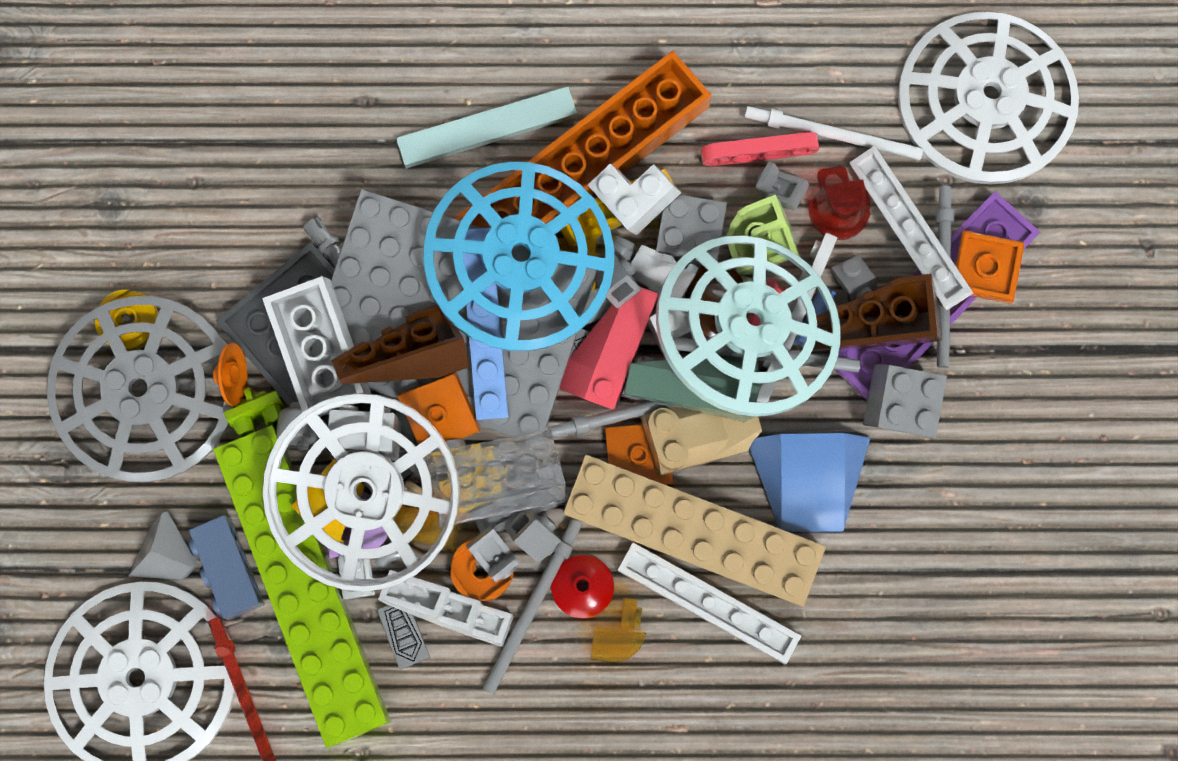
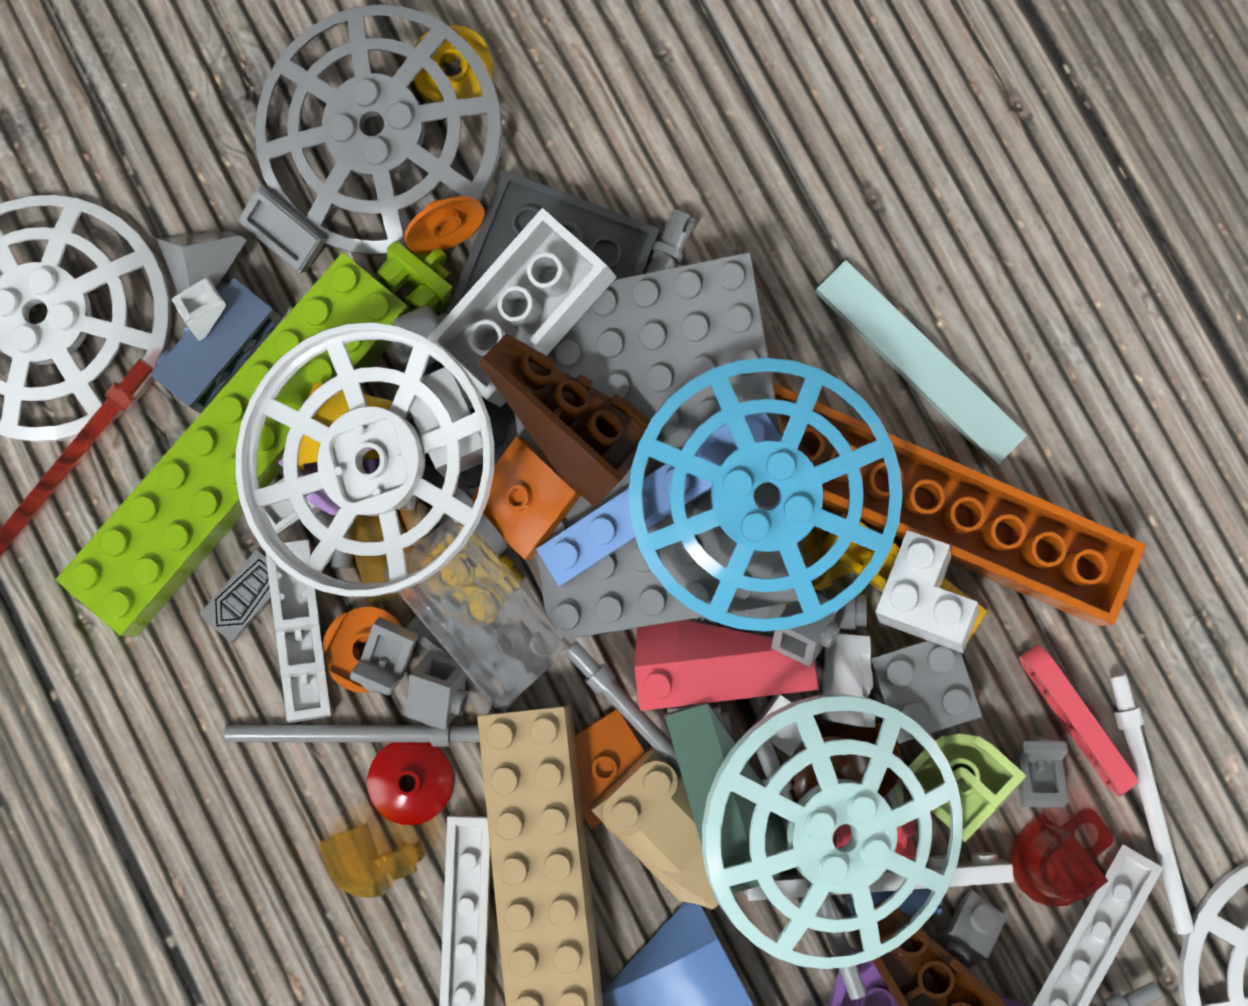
camera: 60 degrees right, 5 degrees up
(172, 486) = (282, 229): none -> light grey tile
(197, 560) = (200, 307): none -> white slope

